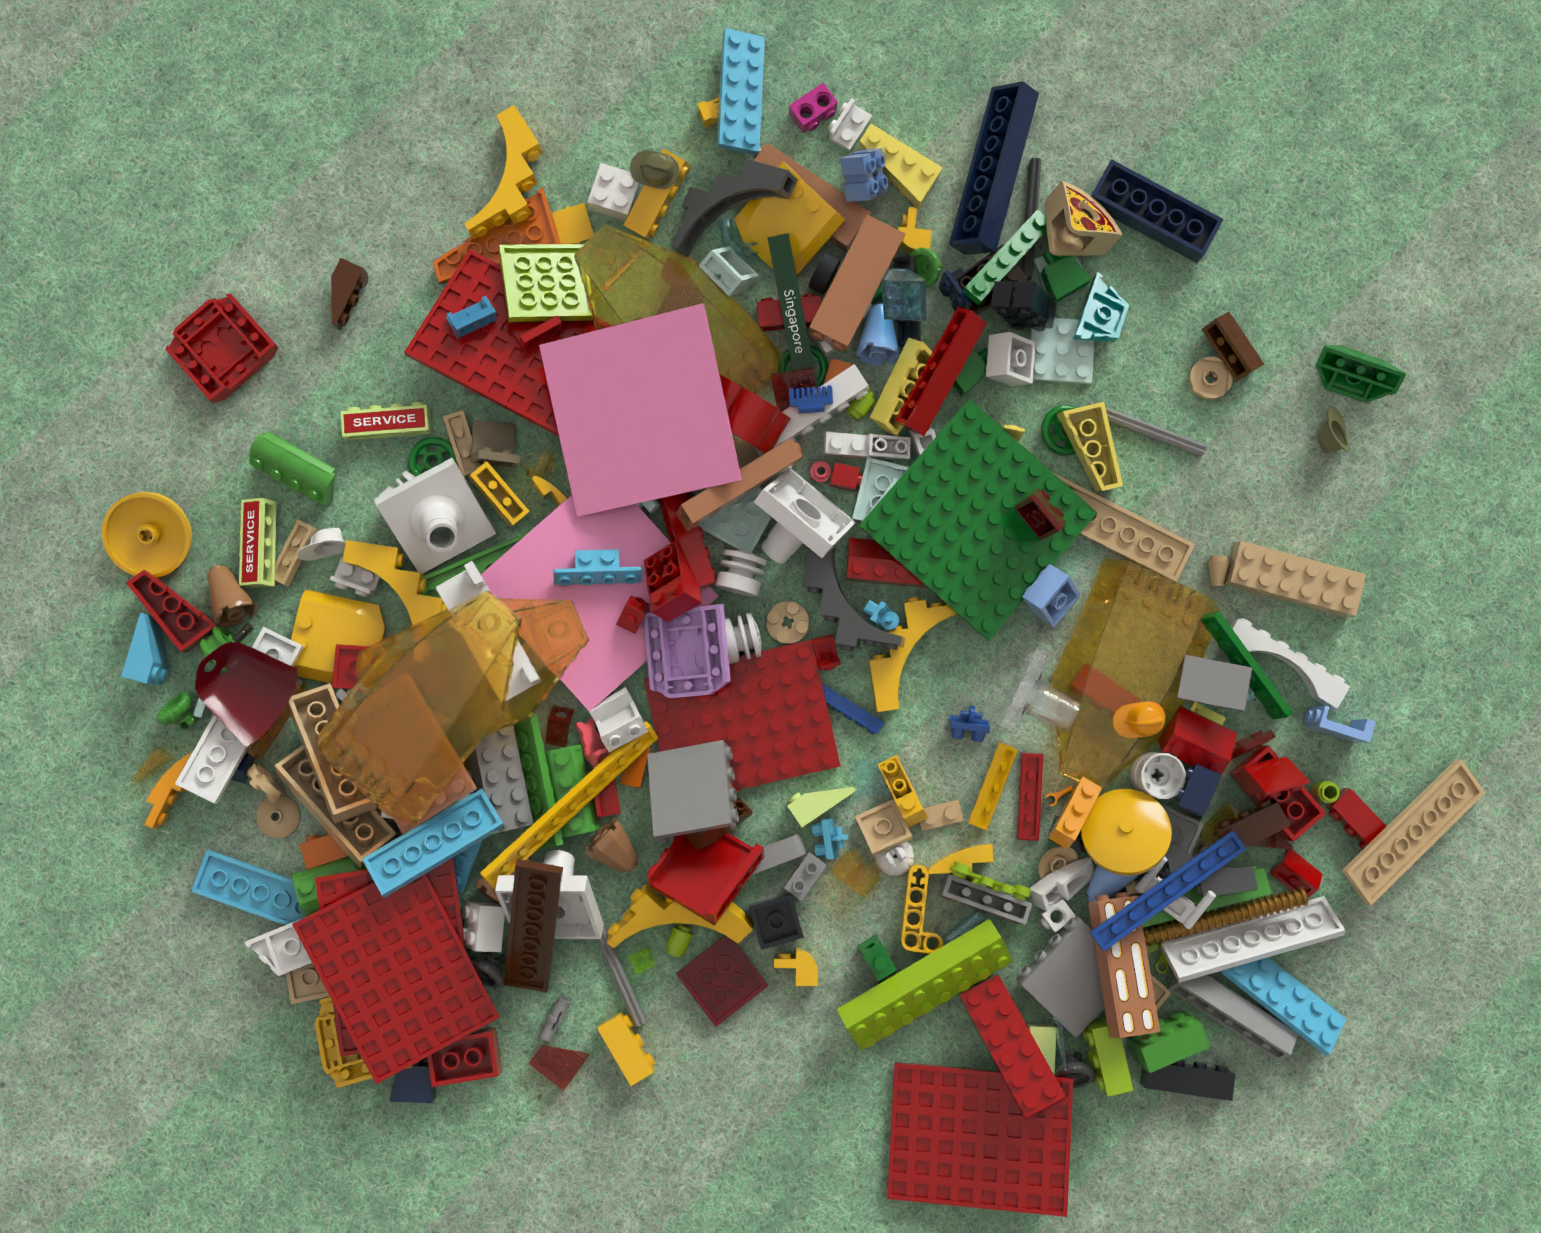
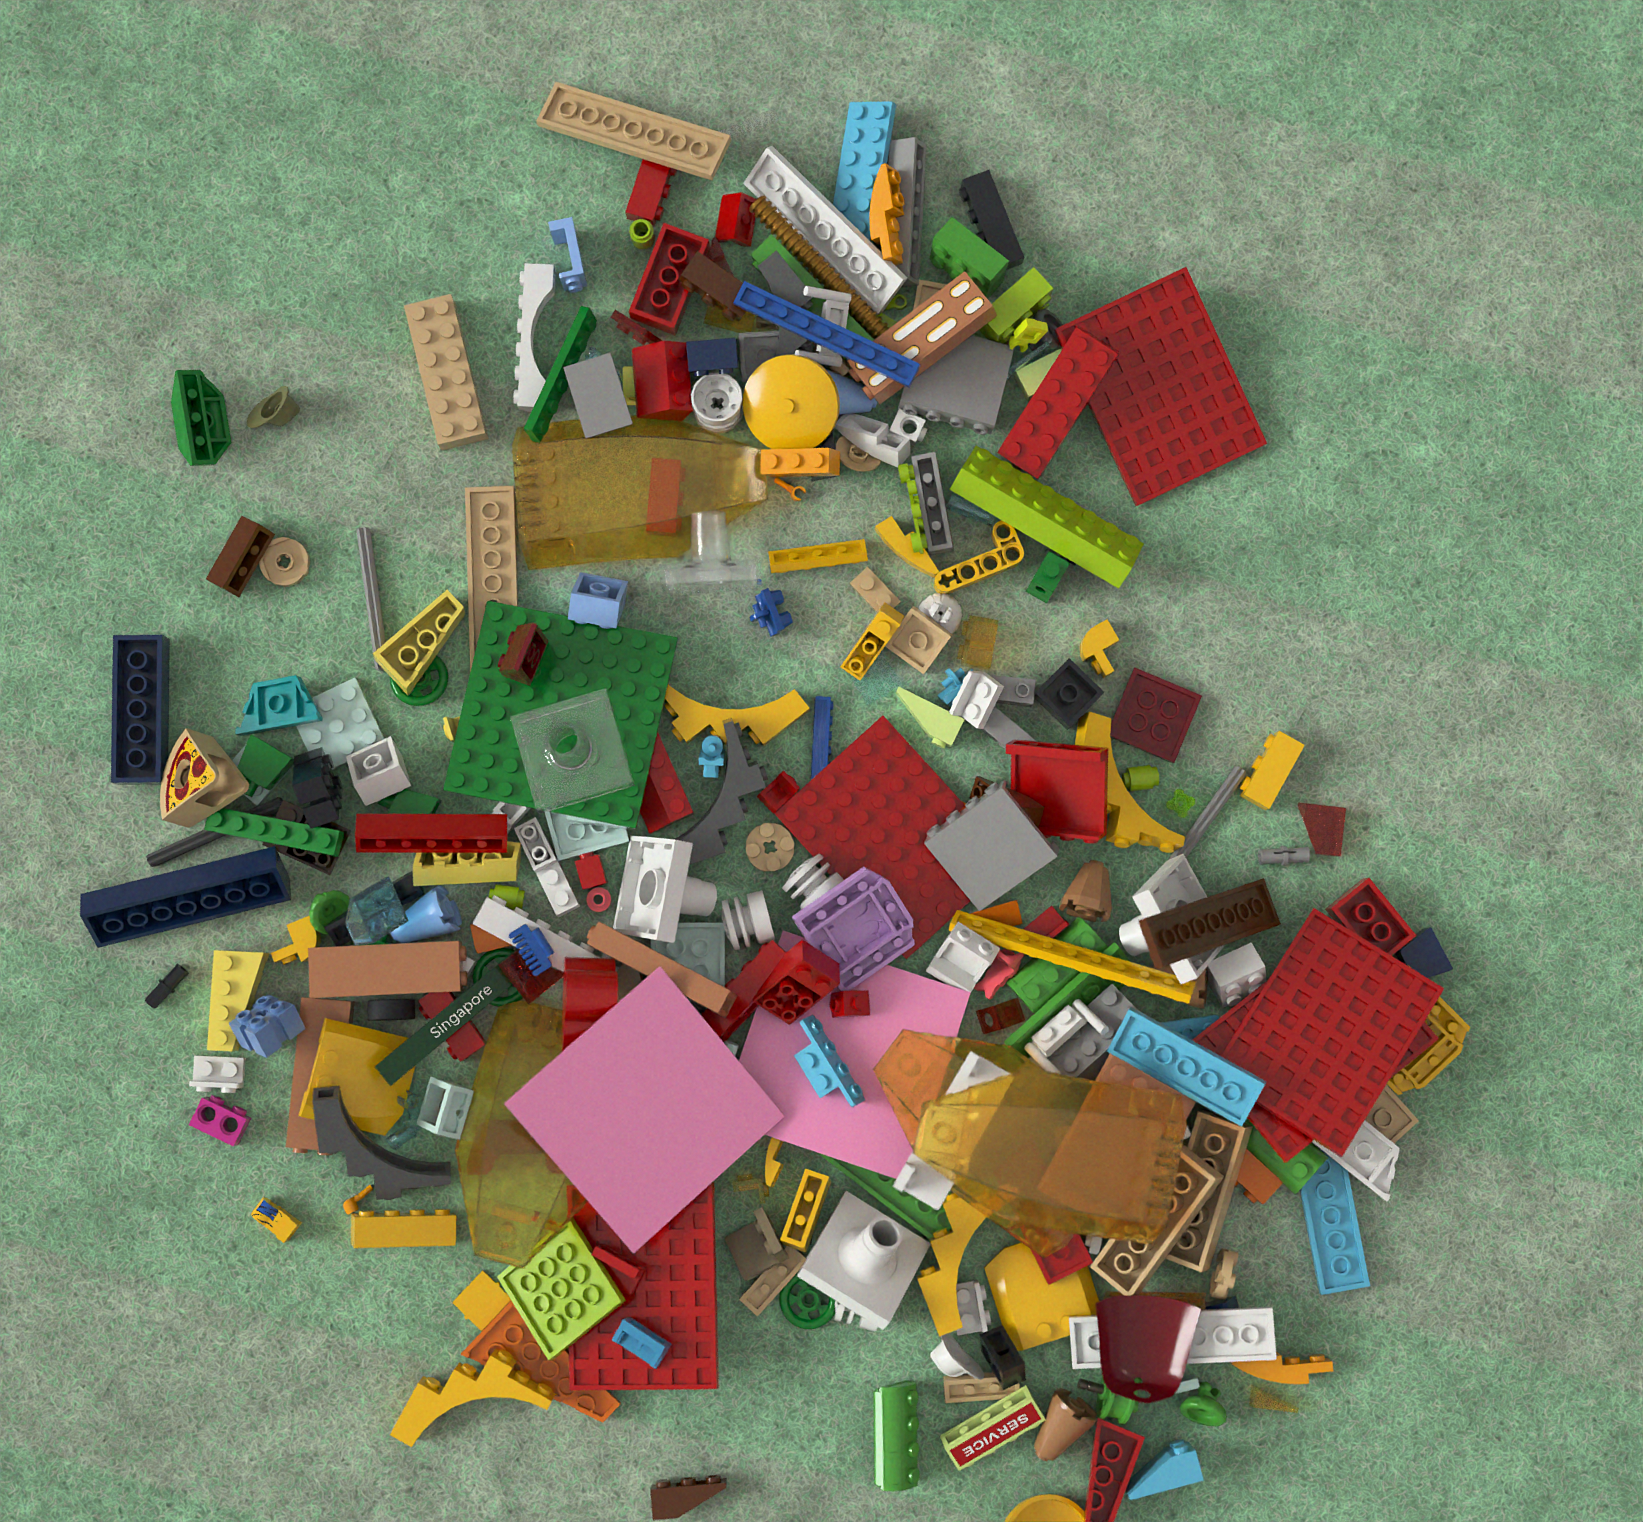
camera: 115 degrees left, 0 degrees up
(288, 817) = (1247, 1231): tan dish -> none
(303, 579) = (1002, 1357): none -> black brick
(386, 422) = (795, 1370): brick -> none
(489, 970) = (1275, 945): dark grey hair -> none
(519, 760) = (1059, 1030): none -> white plate
(613, 192) = (424, 1275): white brick -> none
(654, 169) = (380, 1245): olive piece -> none
(697, 168) = (351, 1204): none -> light orange hand
(740, 92) = (245, 1205): medium azure plate -> none
(812, 845) = (976, 698): none -> white bracket
(930, 525) = (587, 771): none -> clear piece
(935, 123) = (166, 986): none -> black axle
(950, 288) = (336, 872): dark blue bracket -> none
(1029, 796) = (807, 515): red tile -> none
(1082, 1054) = (1028, 332): none -> neon yellow plate
(1139, 719) = (674, 449): light orange piece -> none
(1218, 569) = (477, 452): tan cone -> none
(1244, 997) = (884, 209): none -> light orange slope
(1272, 777) = (660, 292): red slope -> none

